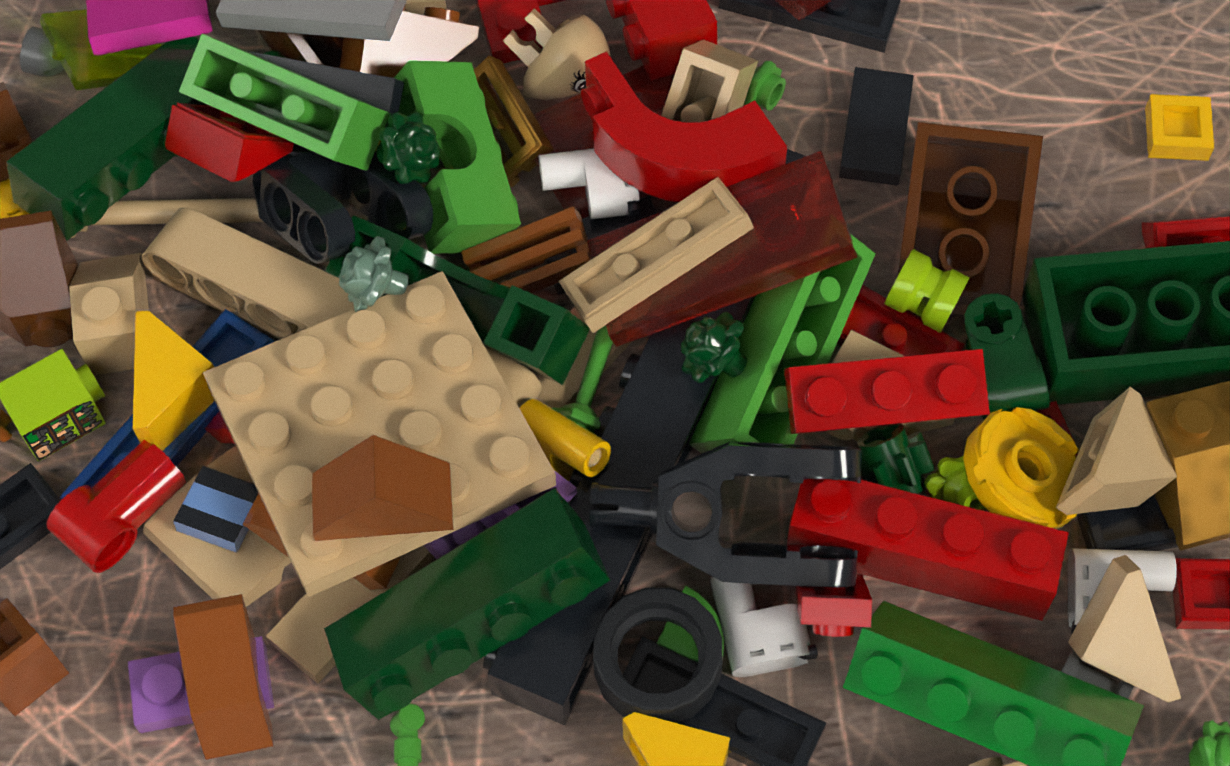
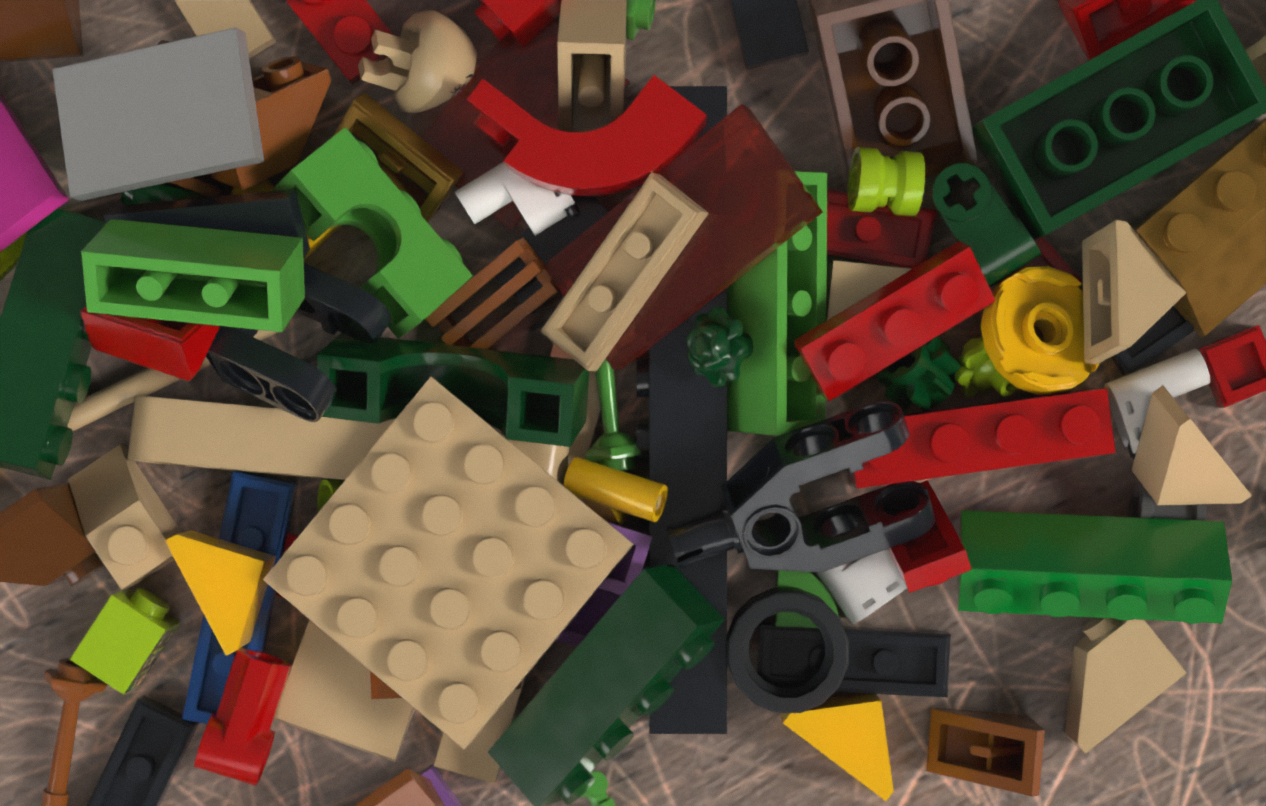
camera: 20 degrees left, 25 degrees up
(216, 509) = (335, 684): tile -> none
(369, 275) = (368, 418): sand green plant -> none
(381, 492) = (496, 648): dark orange slope -> none
(408, 148) = (336, 262): dark green plant -> none

